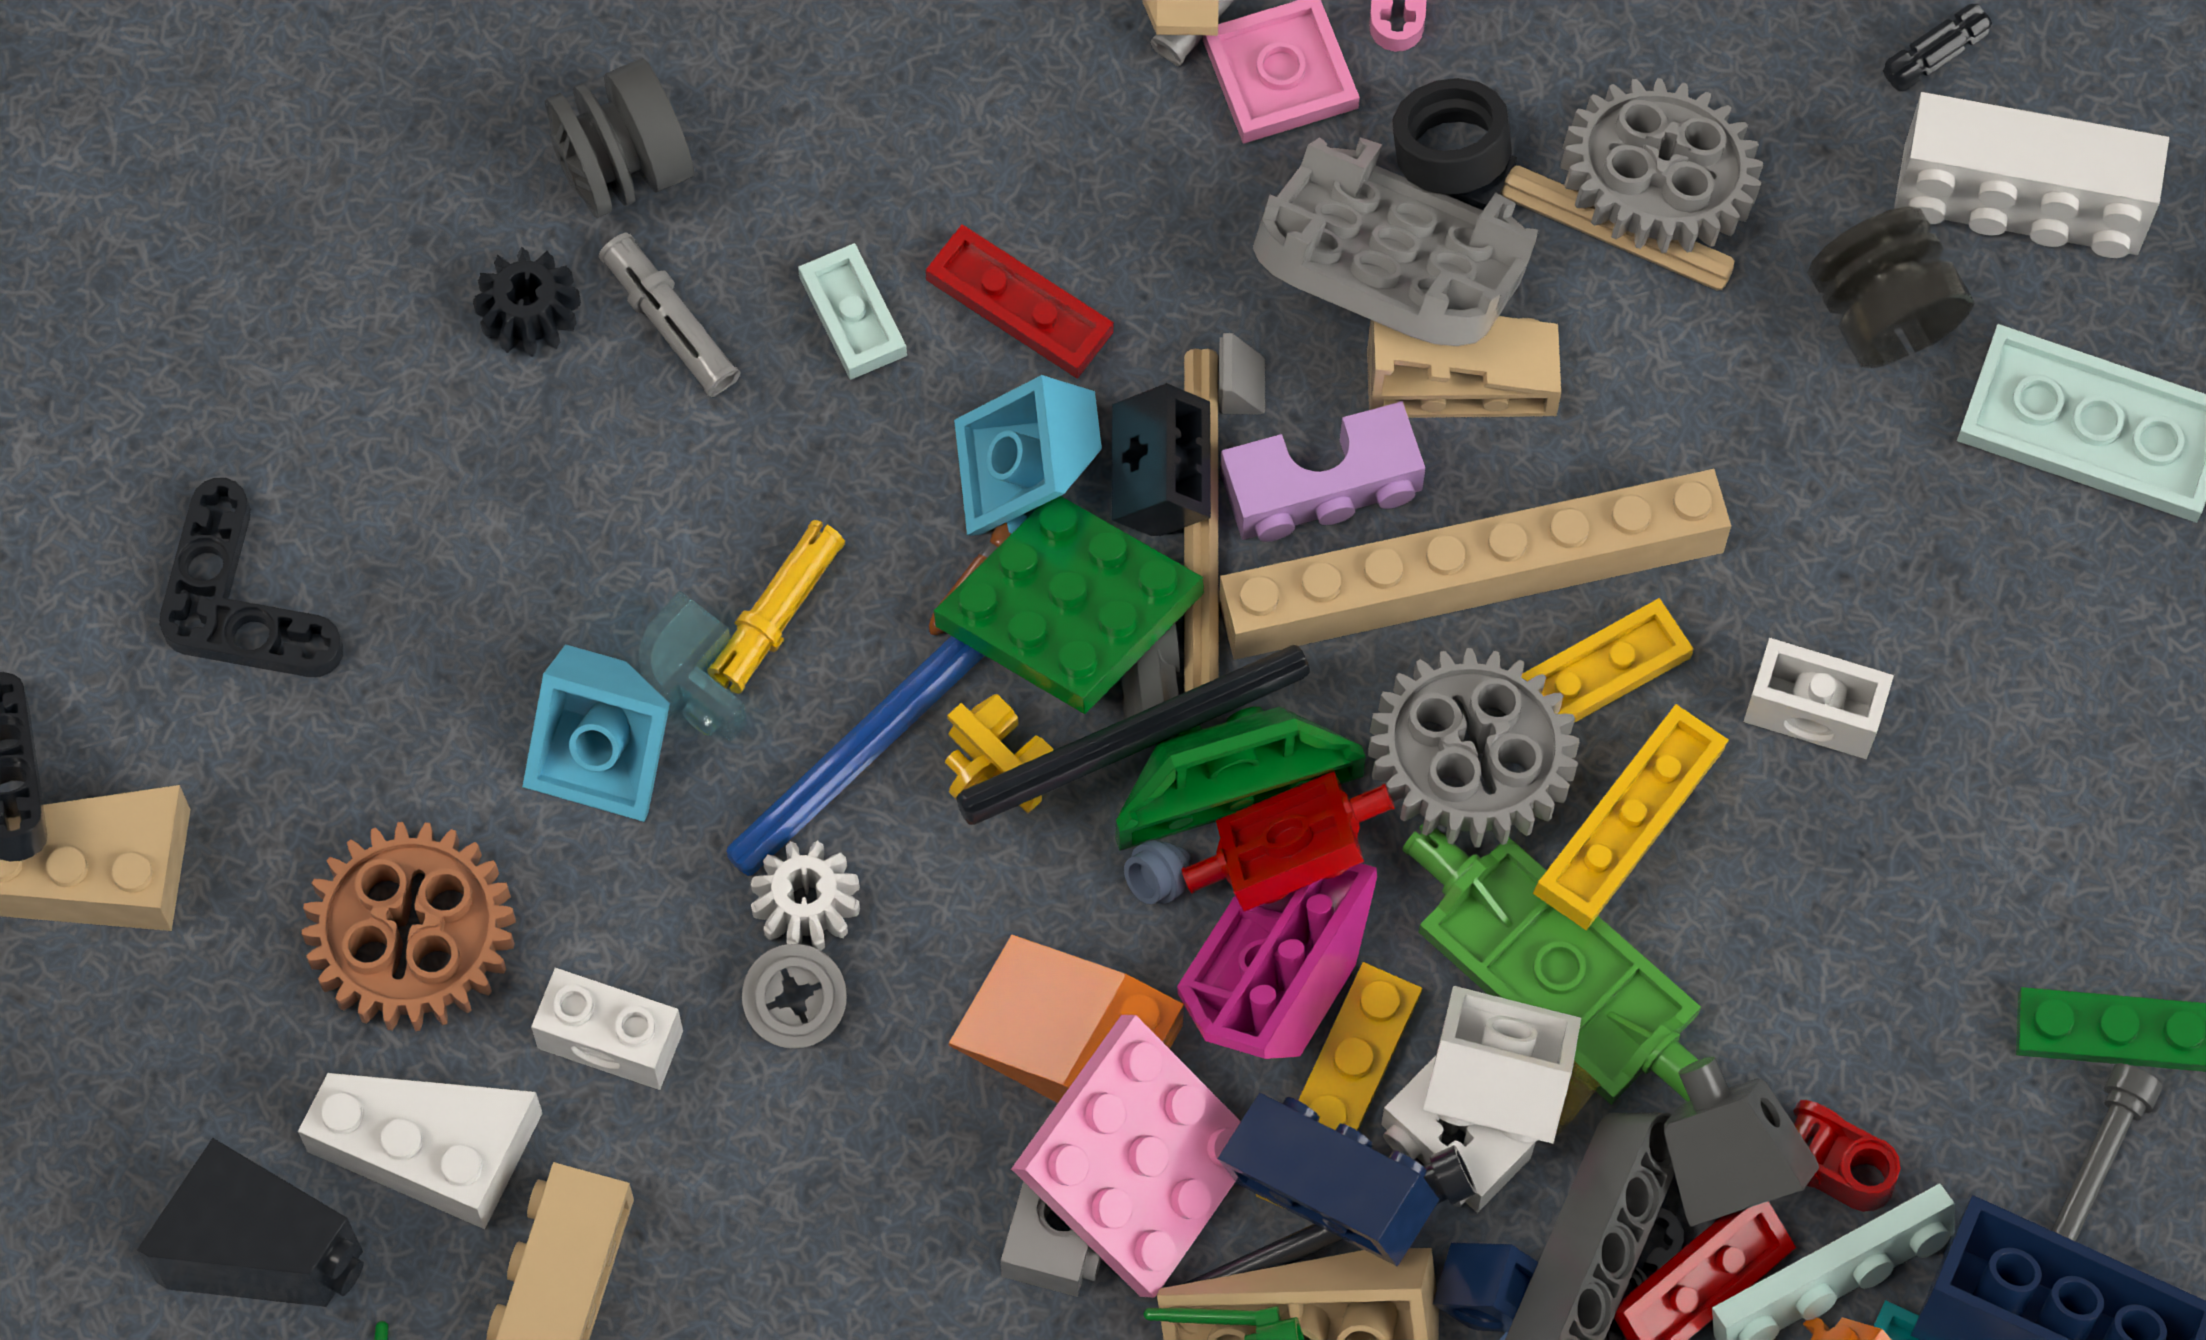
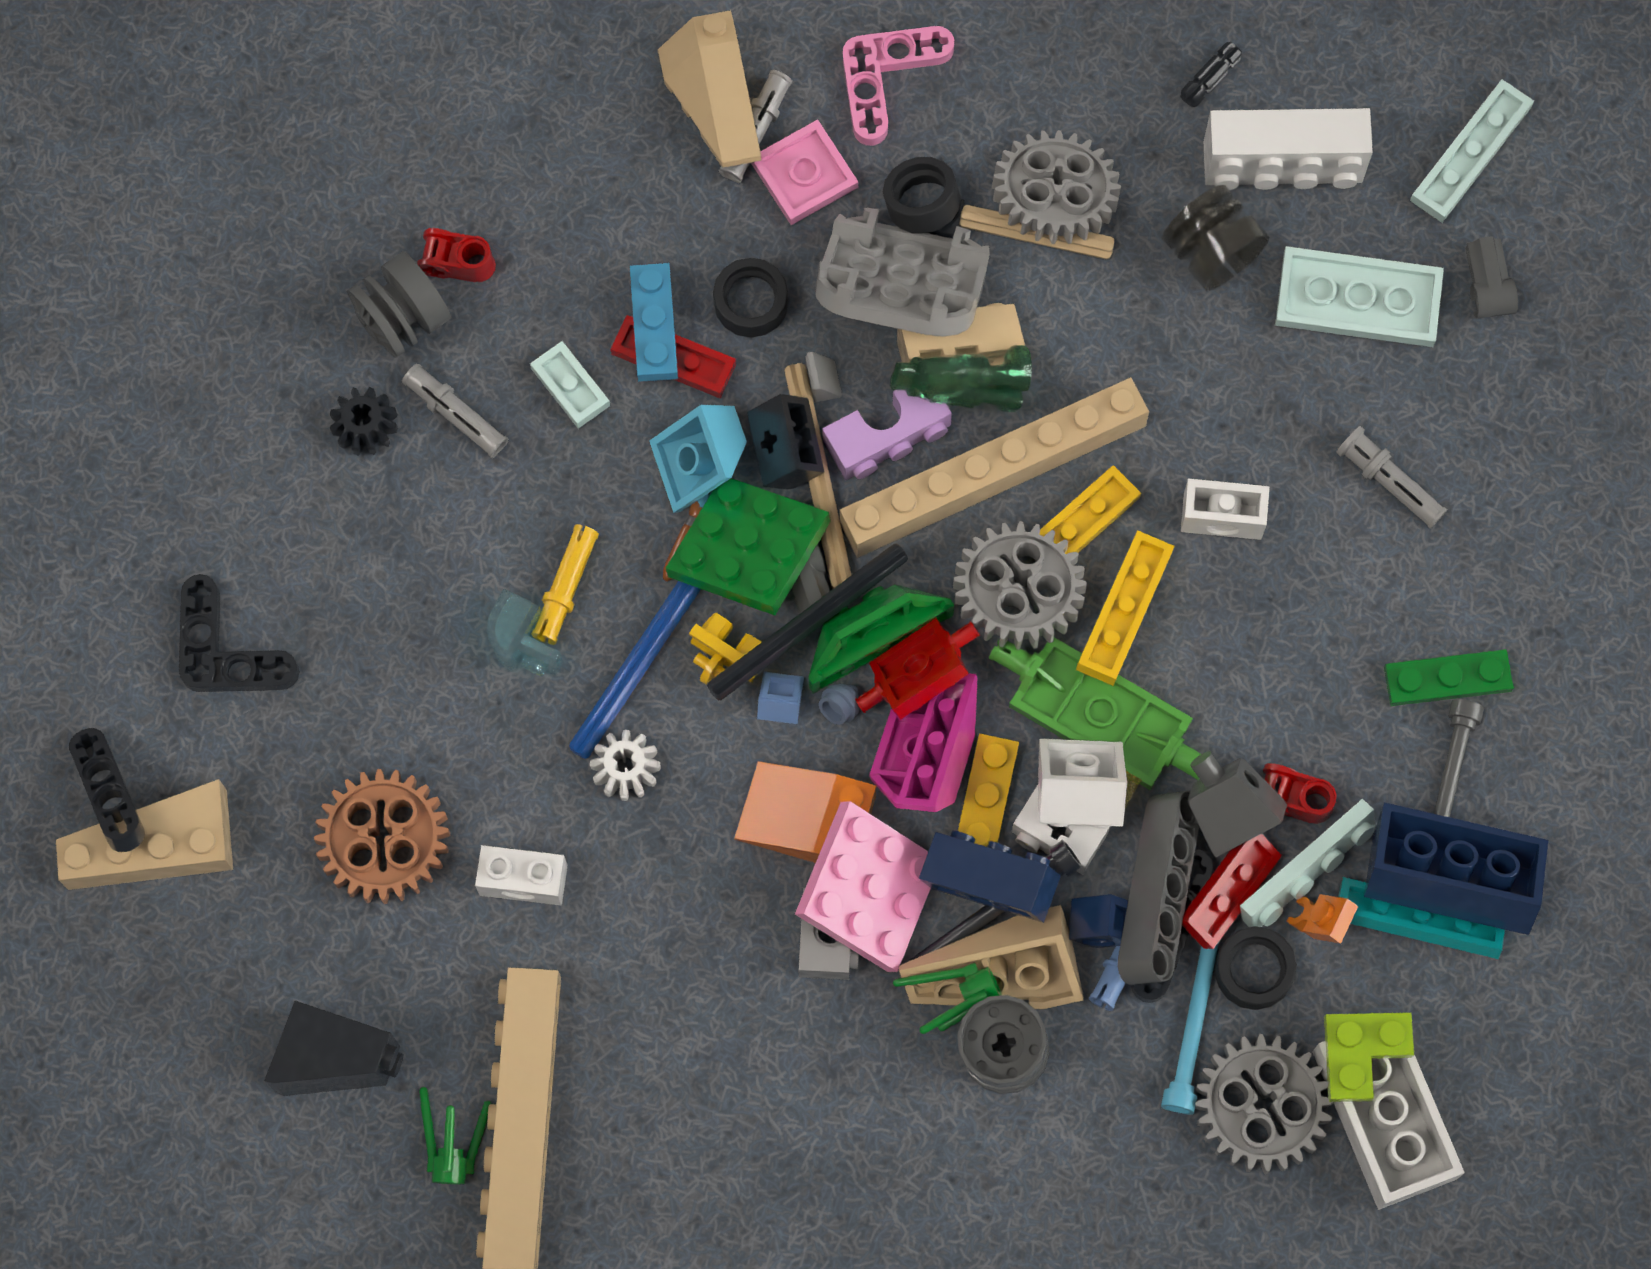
camera: 10 degrees left, 5 degrees up
(424, 1138) = (423, 969): white wedge -> none
(596, 734) = (472, 689): medium azure slope -> none
(714, 81) = (448, 255): none -> red piece
(765, 983) = (627, 848): light grey gear -> none
(999, 242) = (653, 322): none -> dark azure plate
(1067, 845) = (780, 697): none -> medium blue slope
(1157, 281) = (750, 326): none -> black tyre
(1455, 417) = (966, 379): none -> clear green piece
(2138, 769) = (1372, 468): none -> light grey pin

